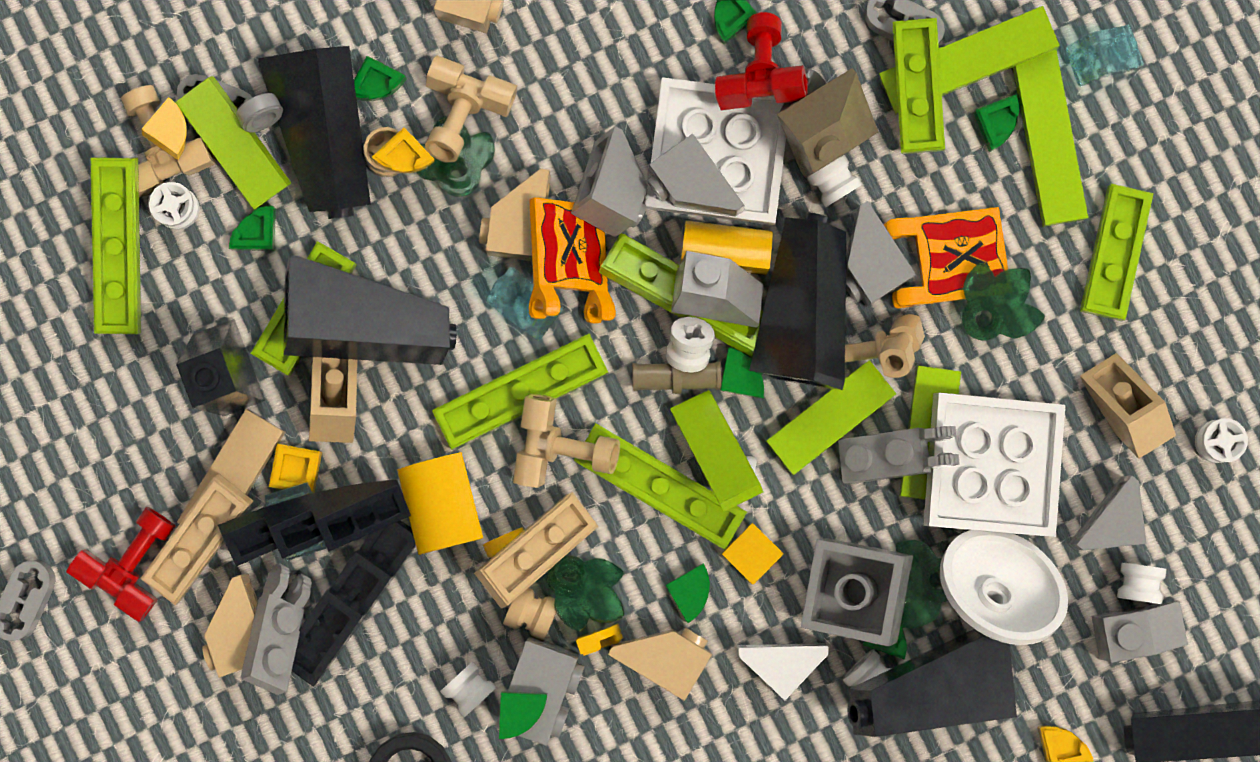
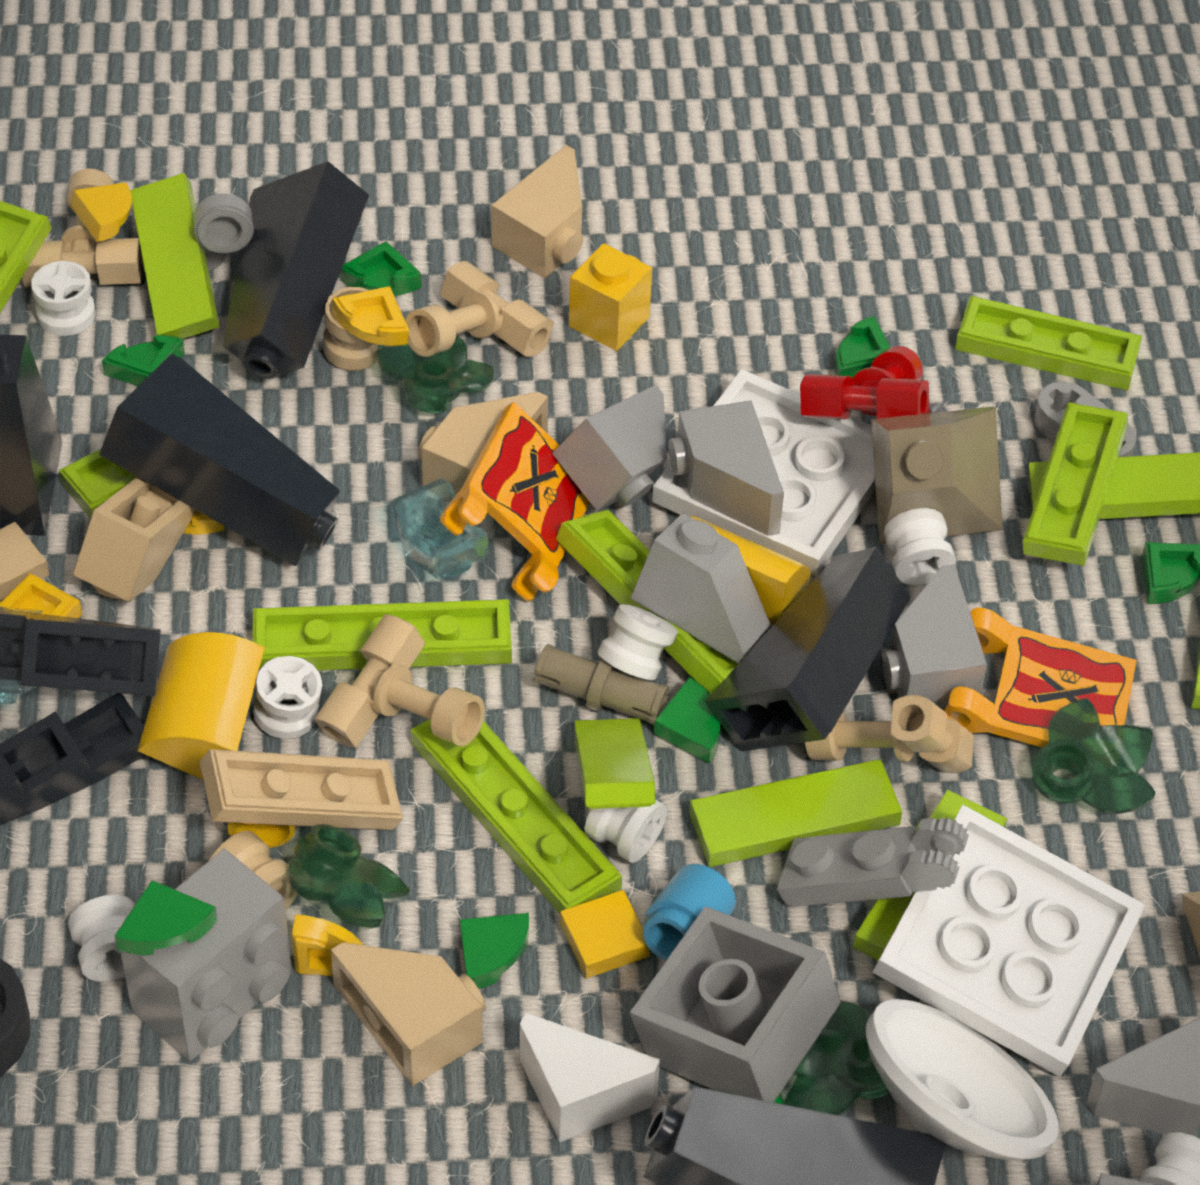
camera: 20 degrees right, 35 degrees down
(495, 474) = (286, 680): none -> white wheel
(547, 47) = (610, 296): none -> yellow brick
(799, 527) = (681, 904): none -> dark azure brick

